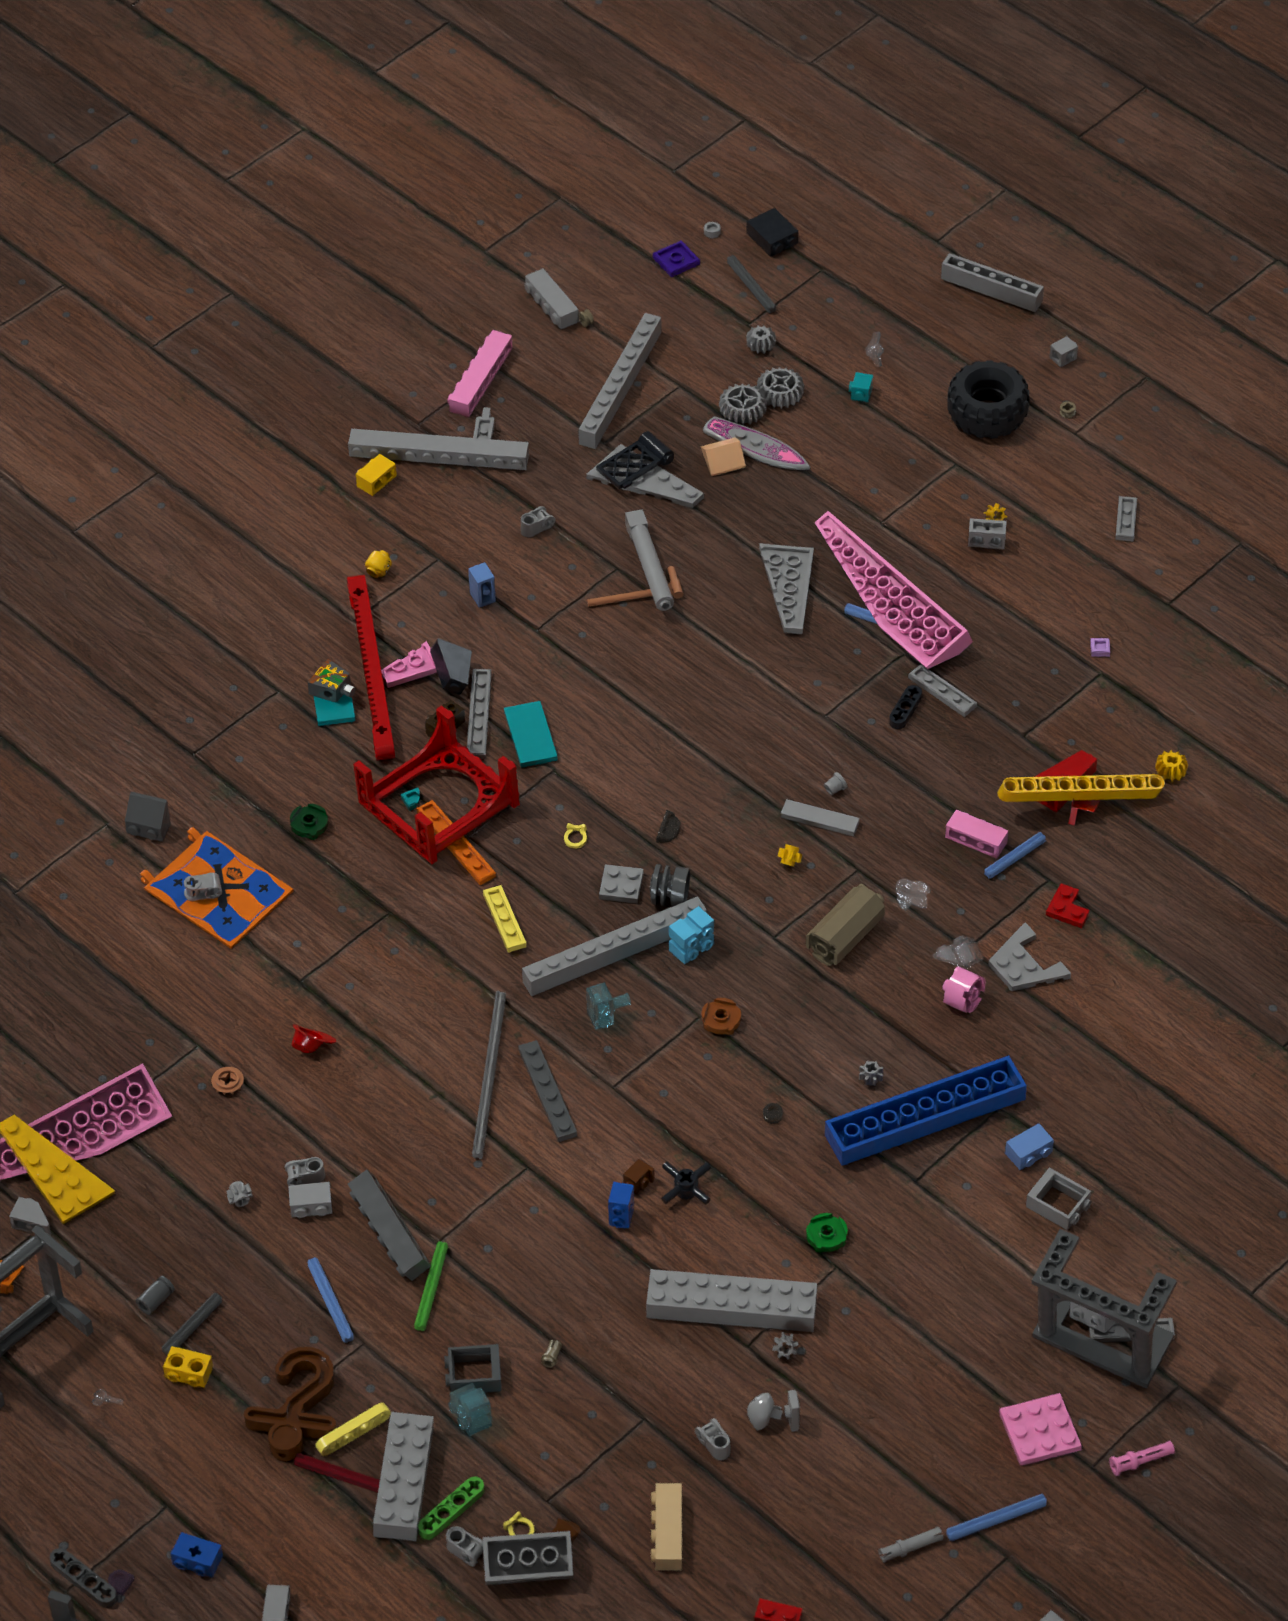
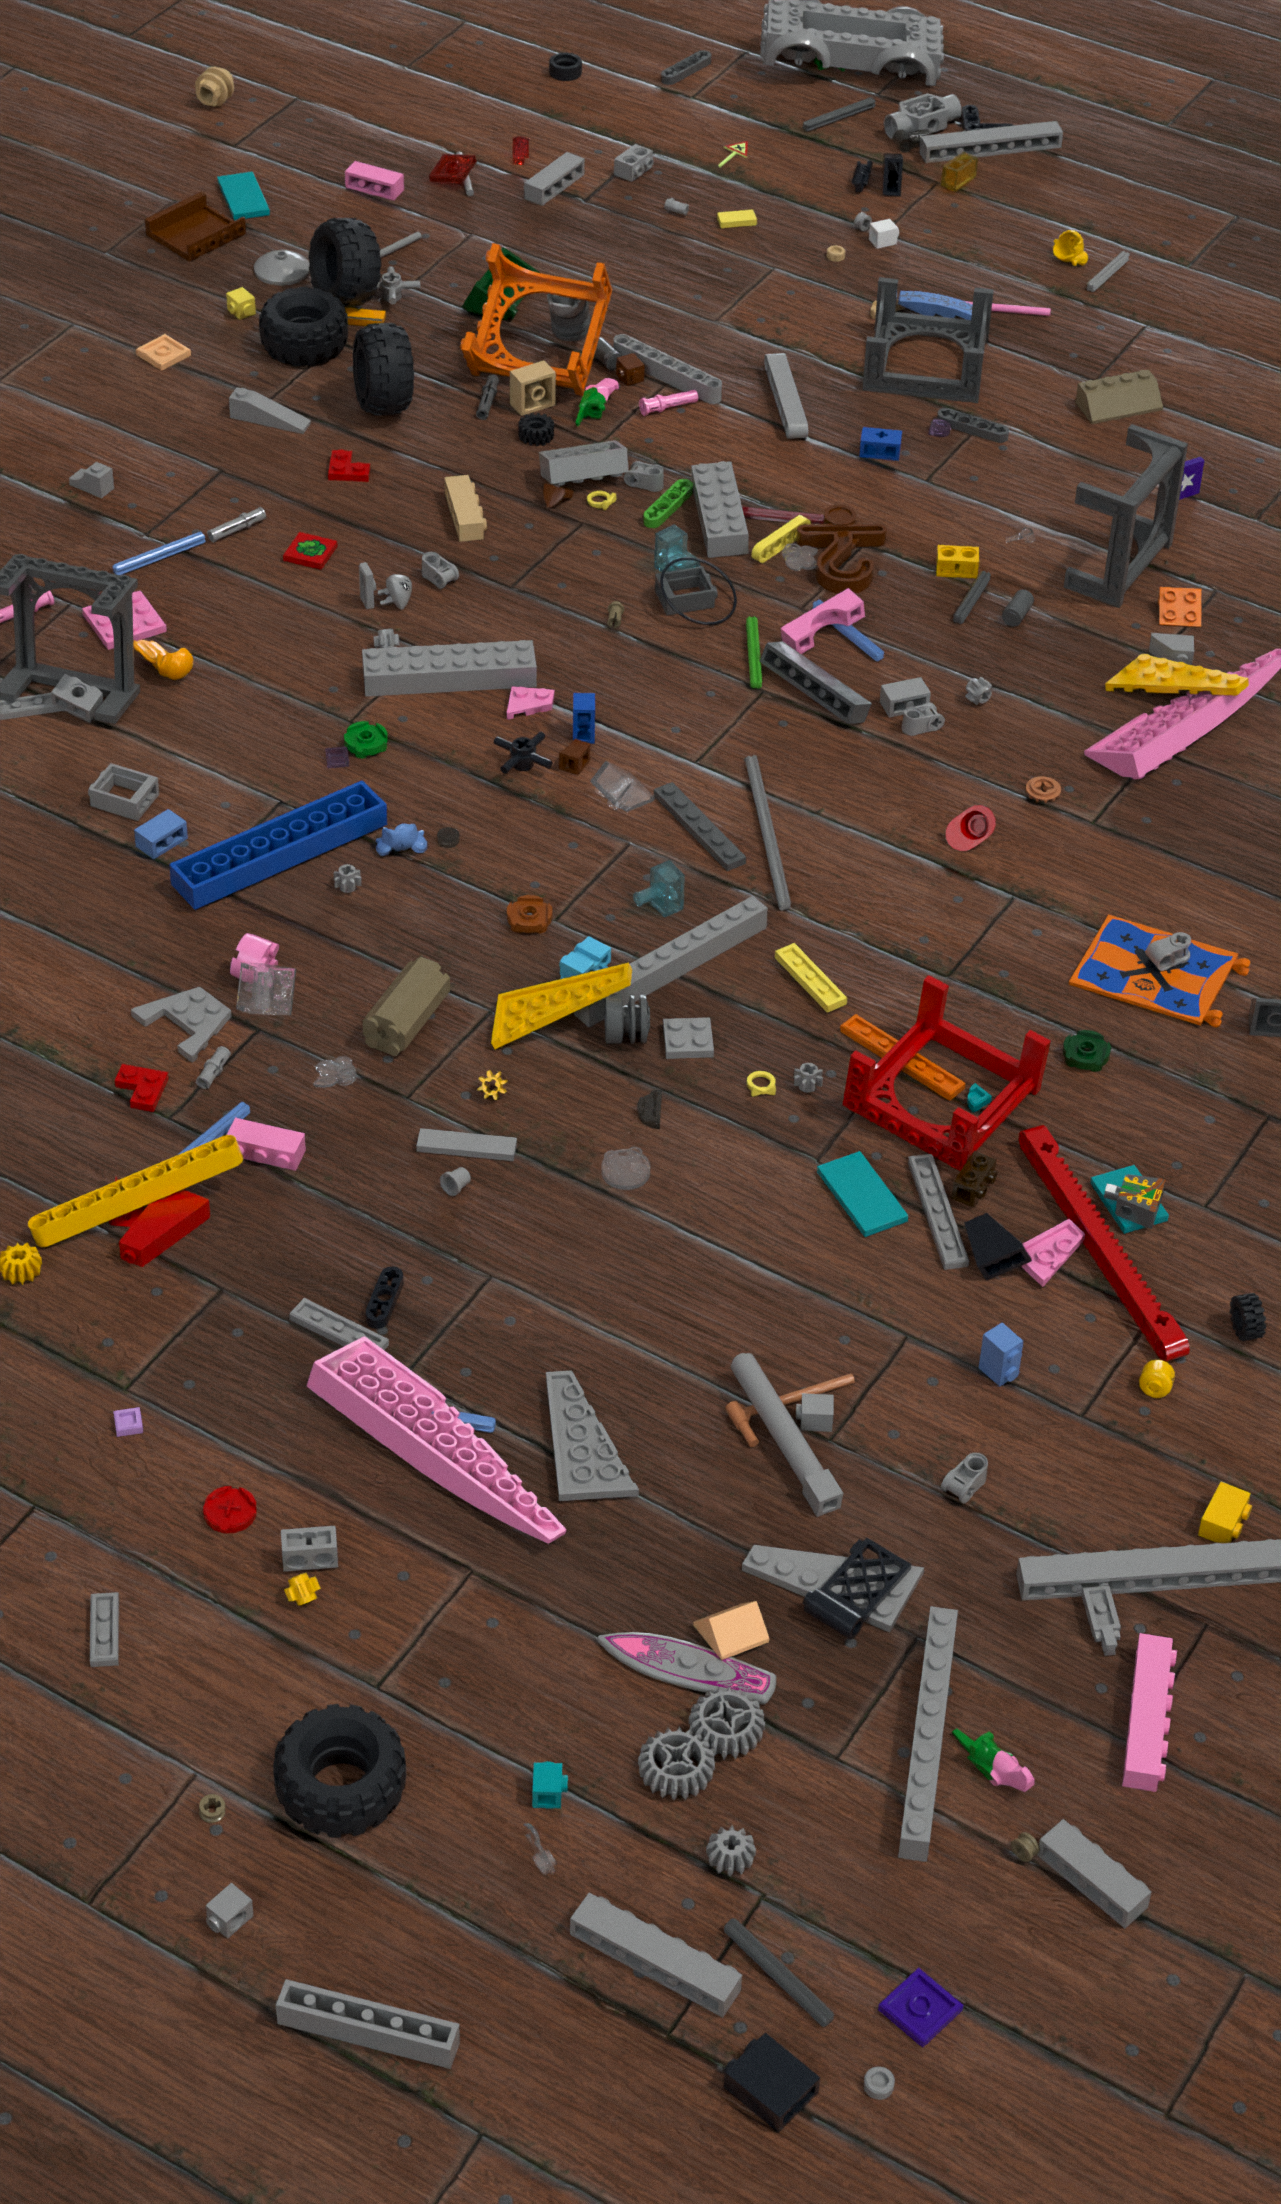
camera: 165 degrees right, 5 degrees down
(296, 588) = (1247, 1316): none -> black tyre
(333, 1301) = (841, 609): none -> bright pink arch
(339, 1405) = (799, 557): none -> clear plate
(473, 1378) = (713, 566): none -> black piece
(539, 827) = (808, 1077): none -> light grey gear
(585, 360) = (994, 1763): none -> animal
(604, 1133) = (620, 788): none -> clear slope
(622, 577) = (816, 1412): none -> light grey brick
(663, 1257) = (529, 701): none -> bright pink wing
(702, 780) = (625, 1168): none -> clear tile
(731, 905) = (539, 1005): none -> yellow wing
(817, 1107) = (402, 838): none -> medium blue hair
(820, 297) = (656, 1954): none -> light grey brick
(839, 1498) = (310, 550): none -> red tile
(856, 1220) = (337, 757): none -> clear purple tile
(1006, 1356) = (169, 665): none -> light orange hair
(1009, 911) = (213, 1067): none -> light grey pin
(1036, 580) = (230, 1509): none -> red tile

